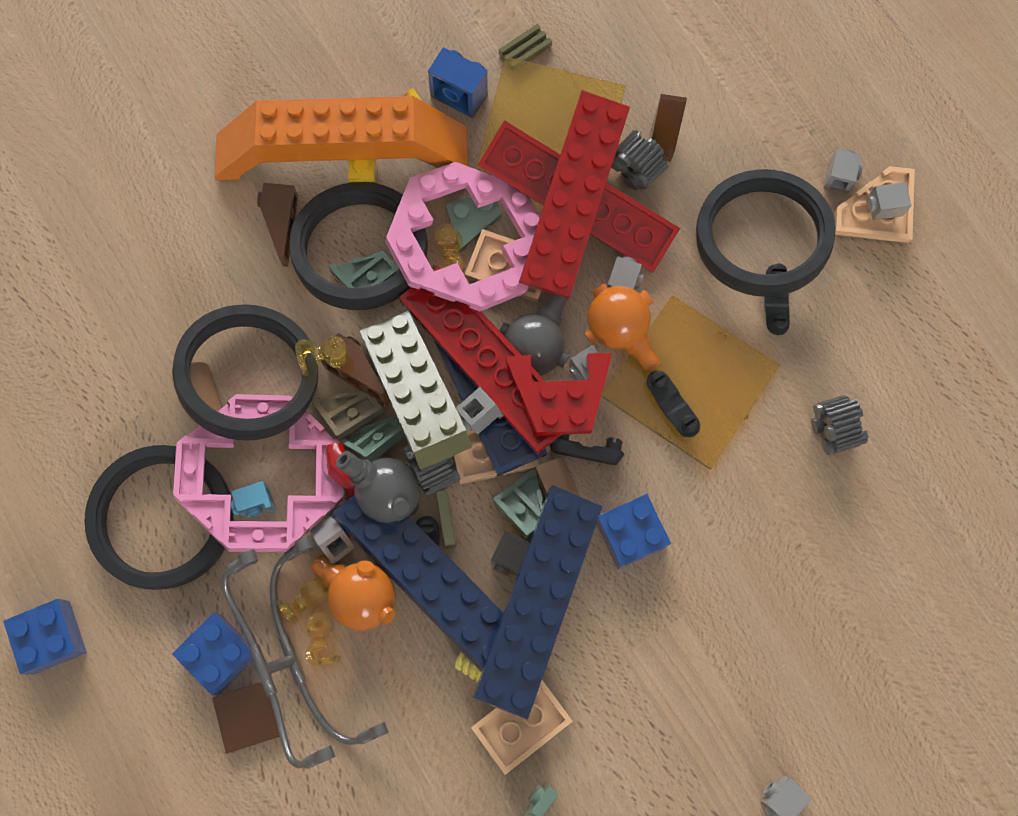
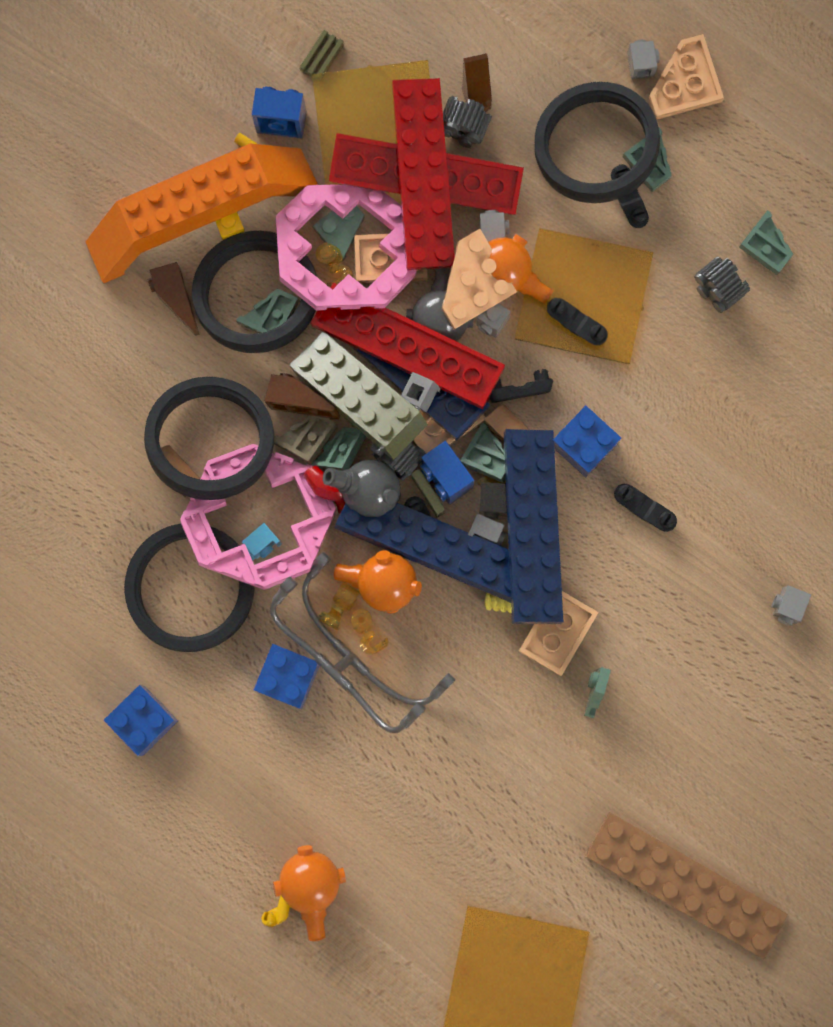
camera: 15 degrees left, 5 degrees up
(245, 717) = (334, 716): reddish brown tile -> none
(332, 350) = (276, 391): clear yellow leg -> none
(332, 539) = (342, 547): light grey brick -> none
(474, 506) = (447, 473): none -> blue brick
(491, 584) = (488, 530): none -> light grey brick
(561, 405) = (484, 360): red wing -> none
(577, 321) = (470, 282): none -> light nougat plate
(668, 628) = (645, 507): none -> black piece
(820, 286) = (661, 172): none -> sand green wing
(888, 201) = (691, 73): light grey brick -> none
(902, 404) = (767, 245): none -> sand green wing

